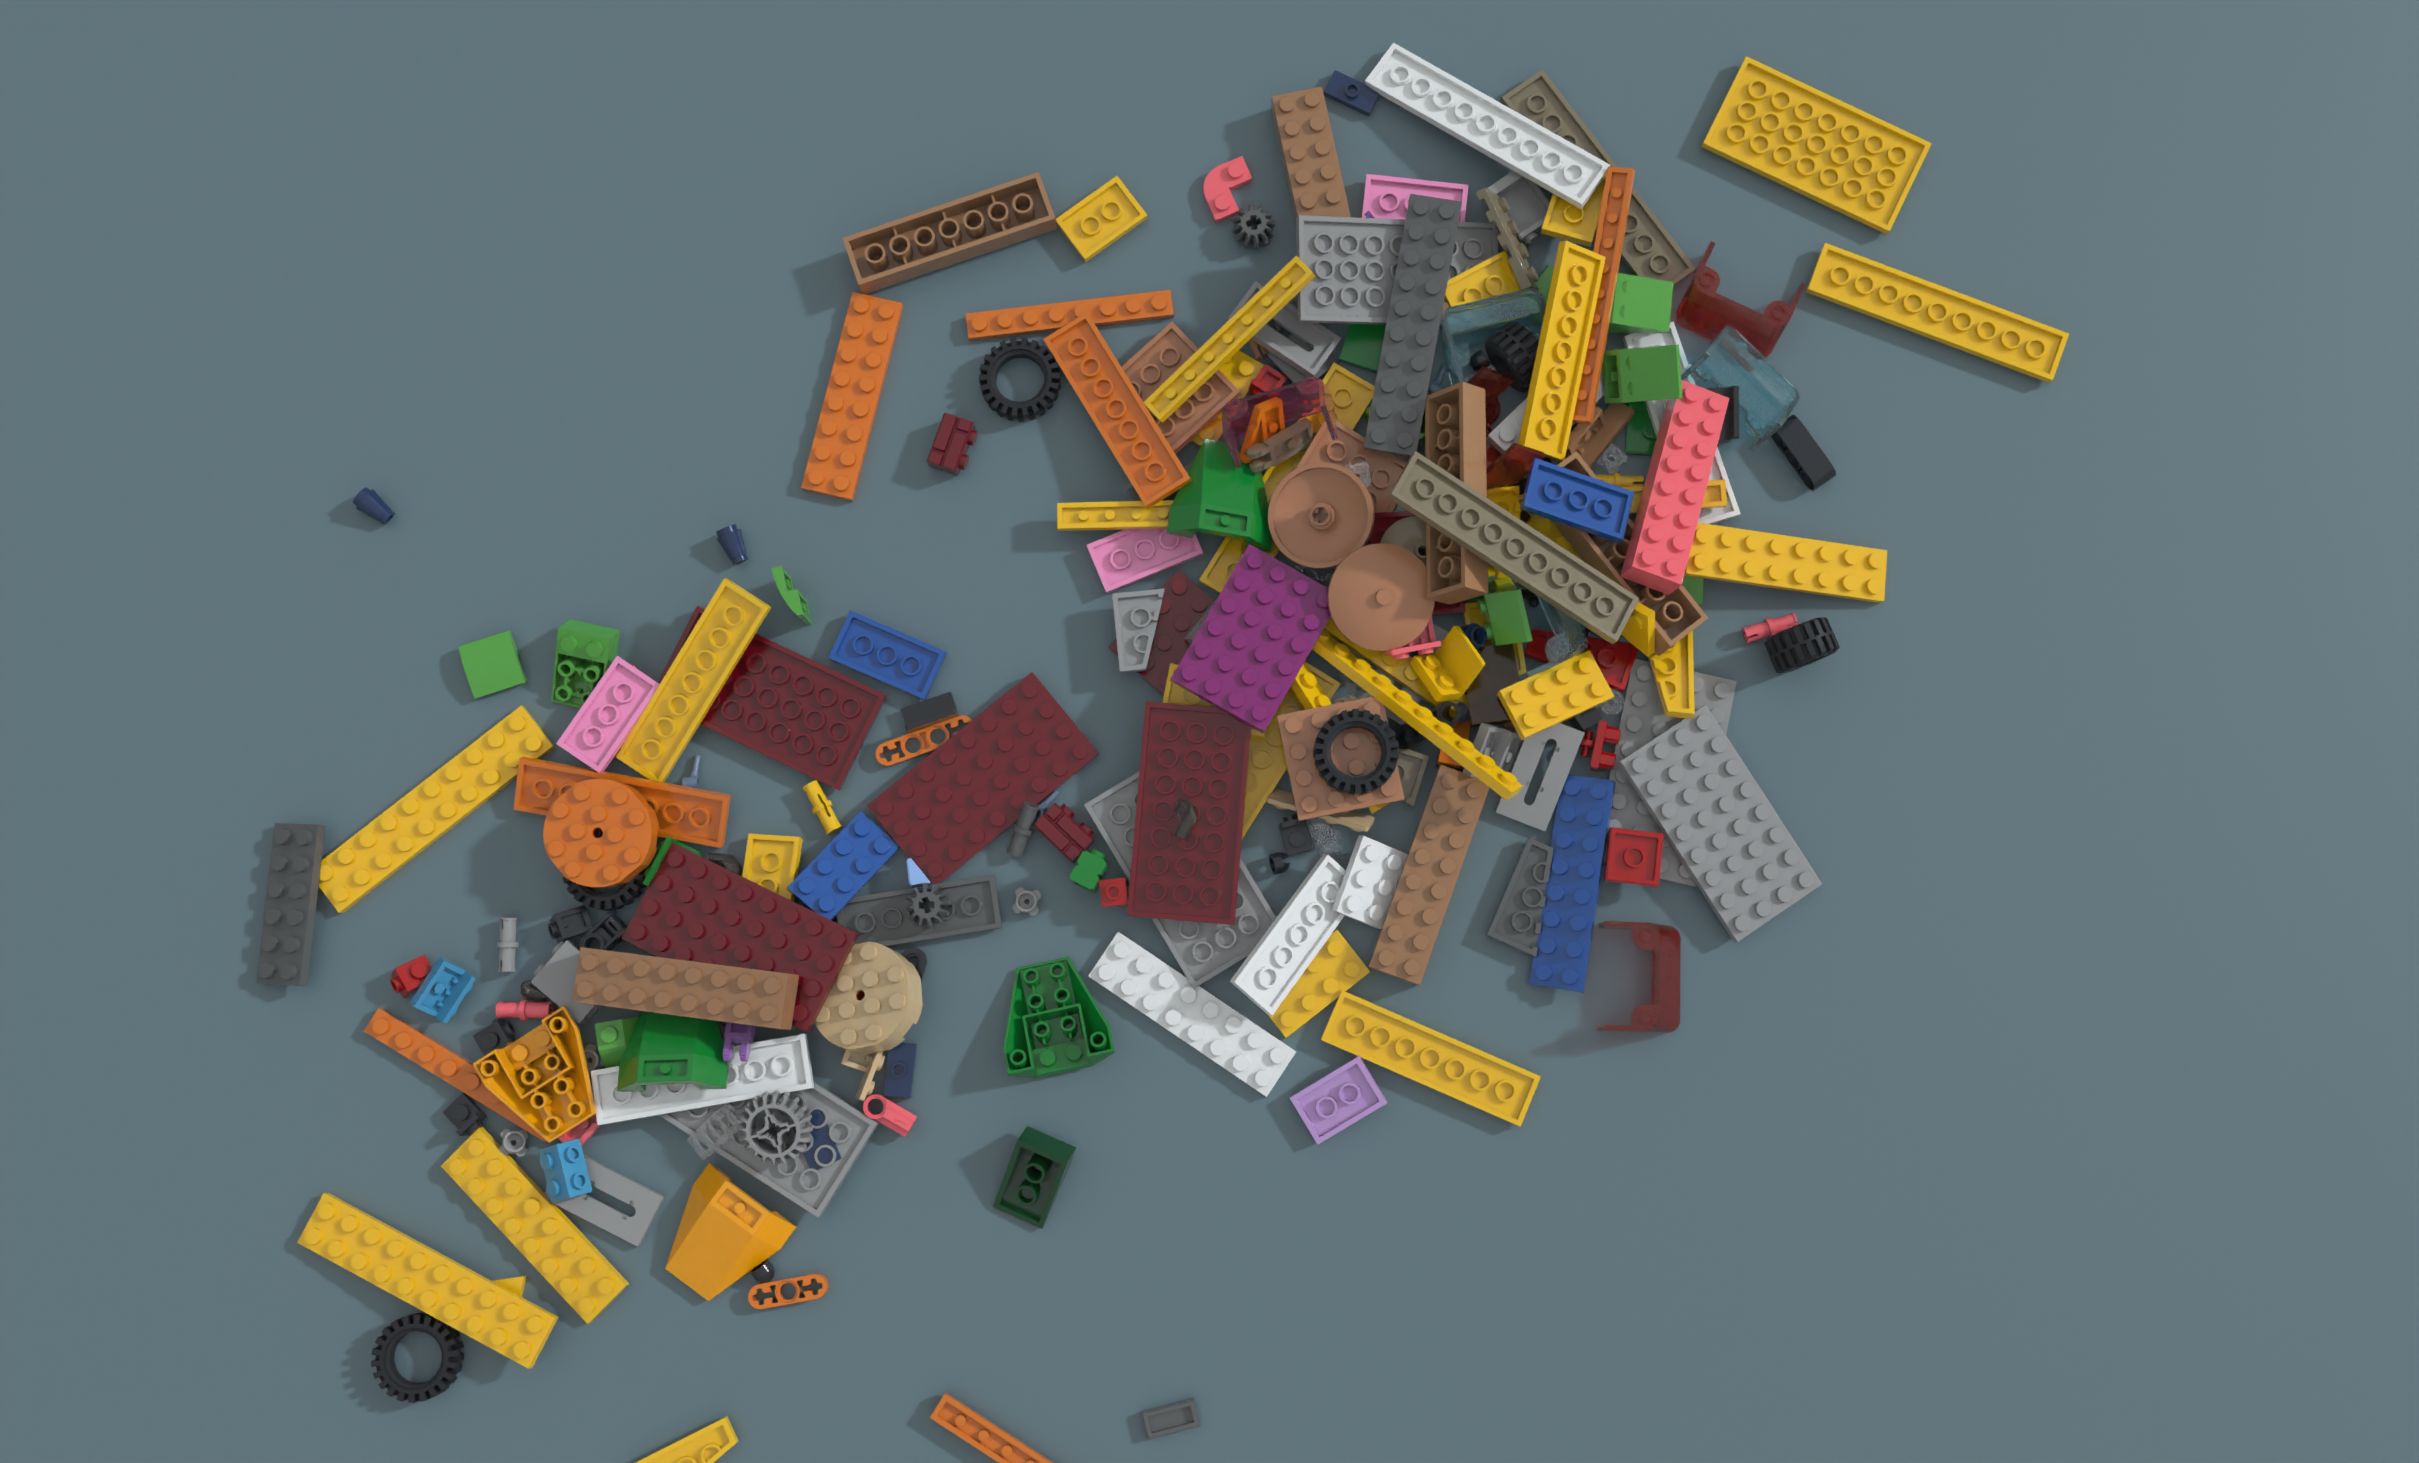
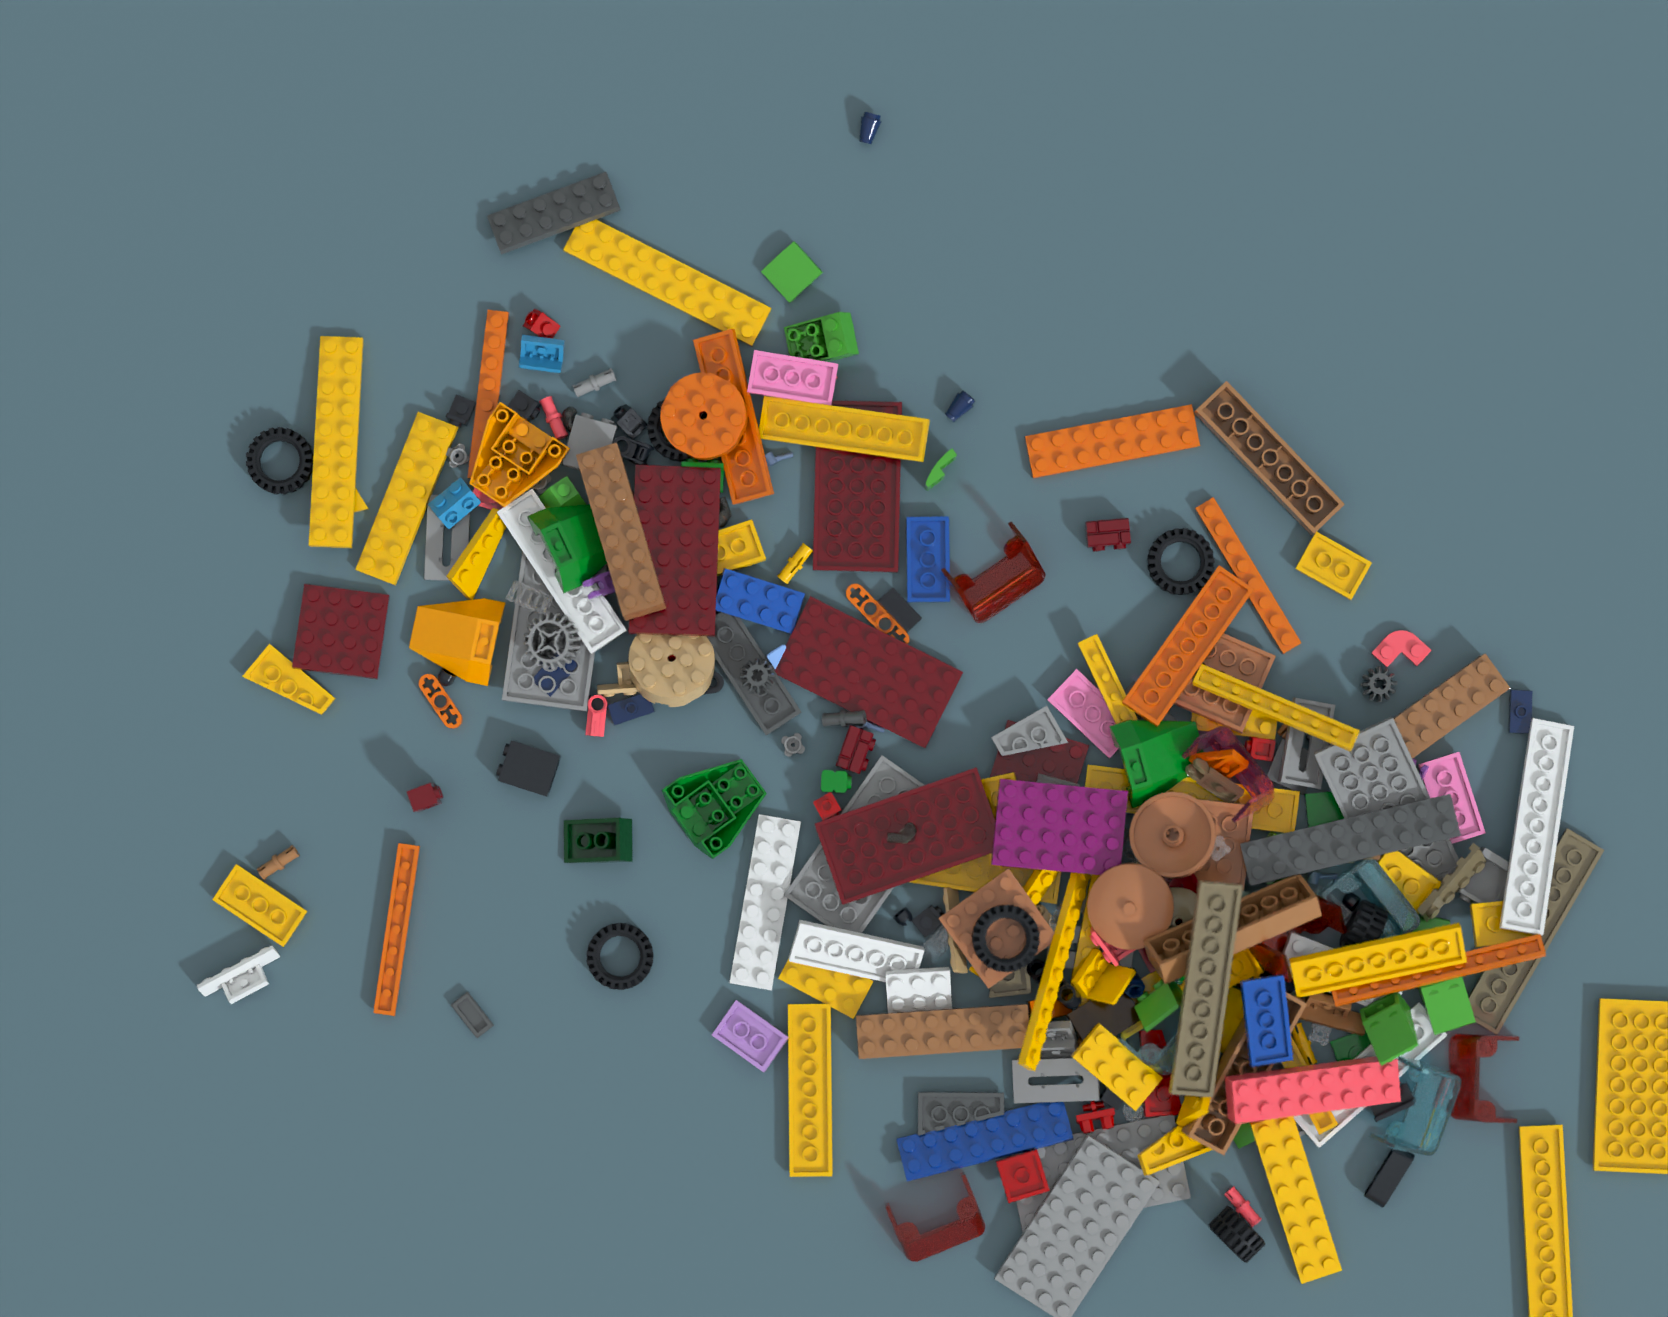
camera: 65 degrees right, 5 degrees up
(639, 1172) = (475, 558): none -> yellow wing
(651, 1374) = (340, 631): none -> dark red plate
(889, 1361) = (425, 797): none -> dark red brick
(913, 1221) = (528, 768): none -> black brick
(952, 584) = (1000, 583): none -> clear red windscreen
(1153, 1232) = (598, 970): none -> black tyre

